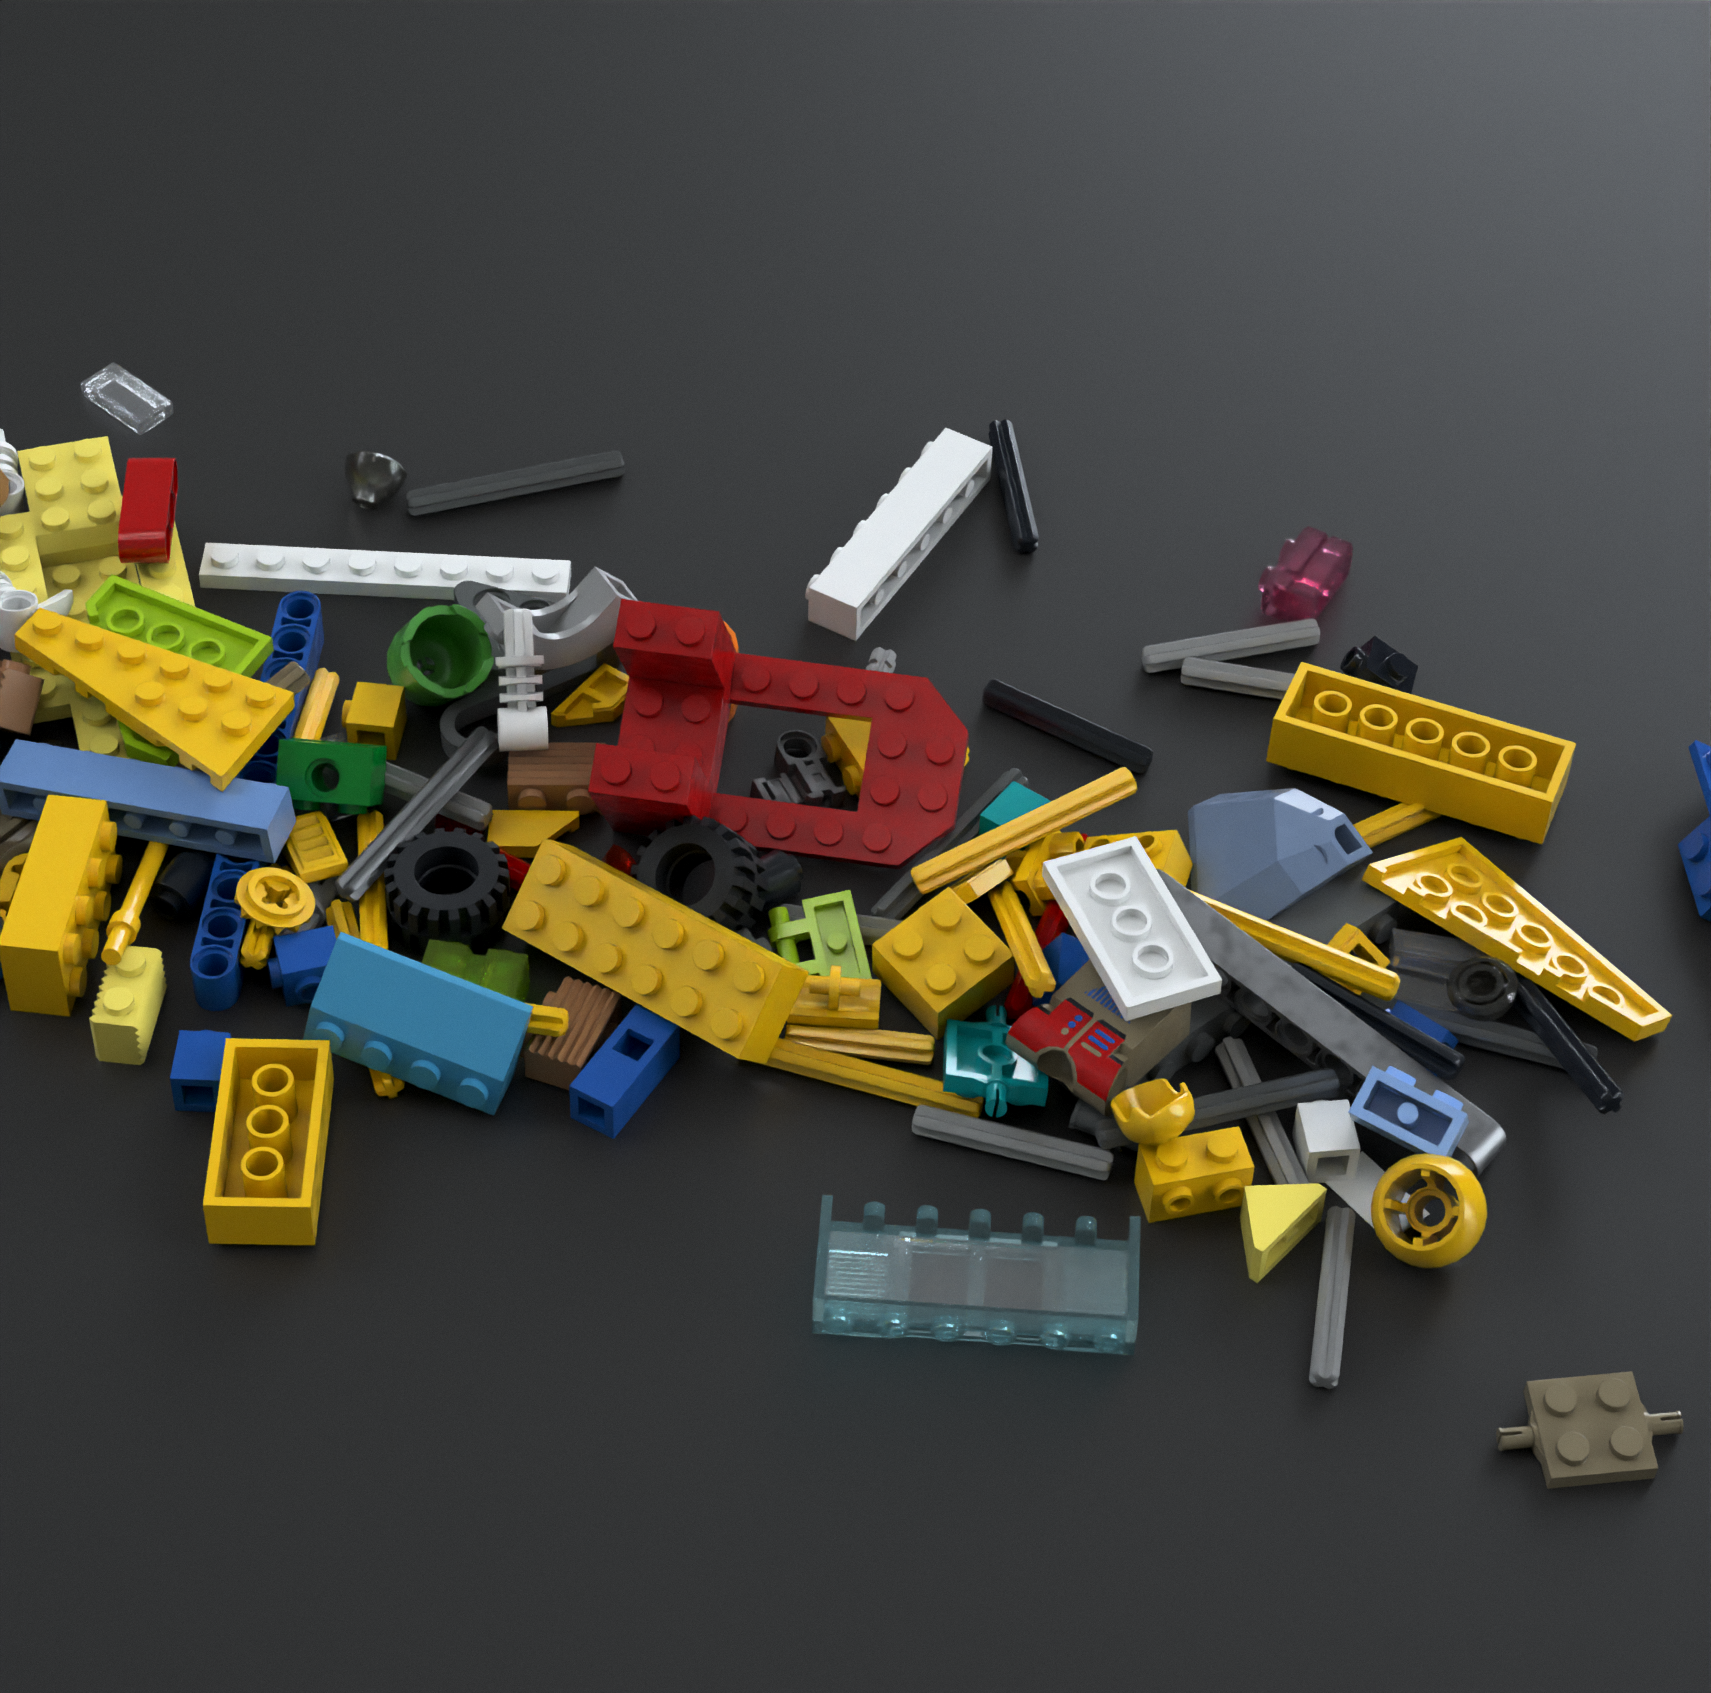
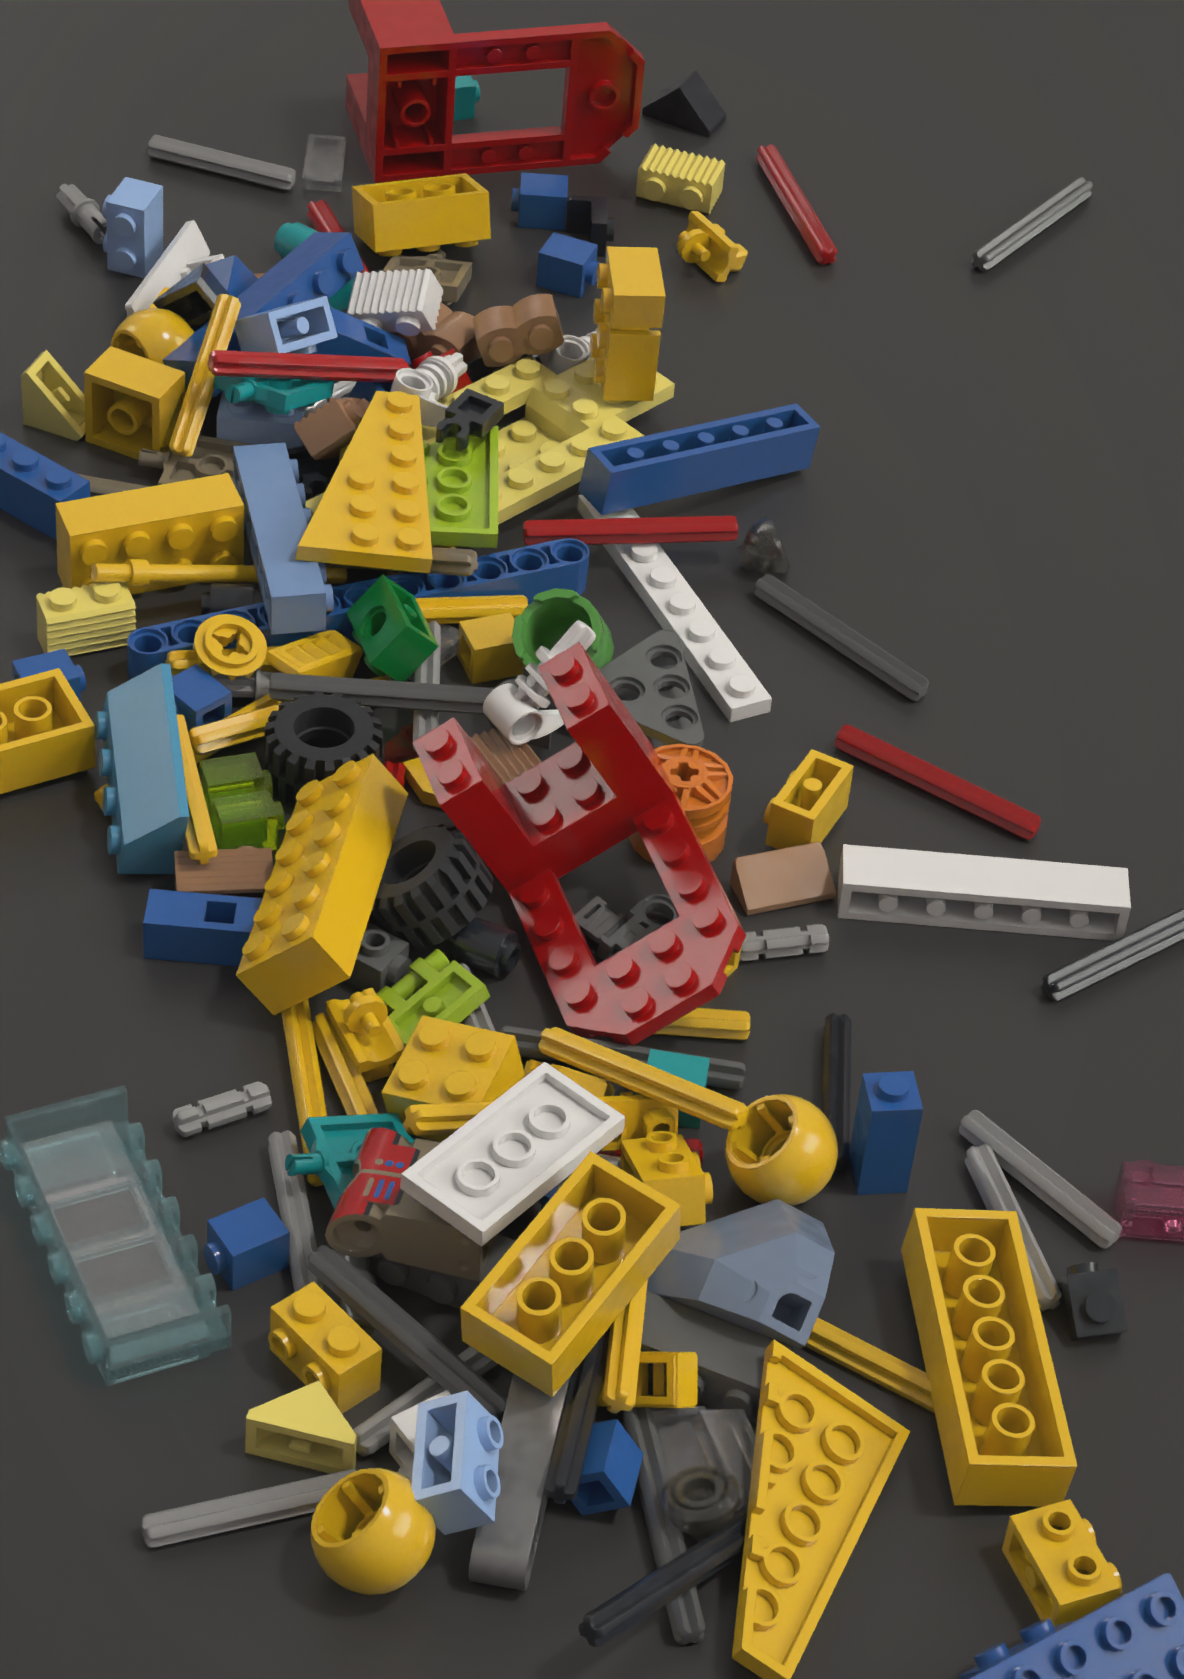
camera: 60 degrees right, 5 degrees down
(38, 108) = (1031, 224): none -> axle
(69, 410) = (629, 305): none -> yellow piece
(102, 582) = (467, 416): none -> black plate
(127, 398) = (746, 388): clear tile -> none
(148, 510) = (588, 421): red beam -> none
(240, 464) = (698, 458): none -> blue brick
(296, 553) = (633, 530): none -> red axle
(573, 626) = (660, 705): light grey arch -> none
(739, 503) = (937, 782): none -> red axle
(739, 588) = (808, 802): none -> yellow brick
(803, 637) = (782, 878): none -> medium nougat slope
(856, 1147) = (221, 1109): none -> light grey axle
(1040, 1182) = (247, 1244): none -> blue brick
(1153, 1111) = (337, 1264): yellow hair -> none
(1168, 702) = (885, 1132): none -> blue brick
(1170, 799) = (782, 1150): none -> yellow wheel
(1281, 946) = (570, 1273): none -> yellow brick
(1636, 808) = (1060, 1562): none -> yellow brick

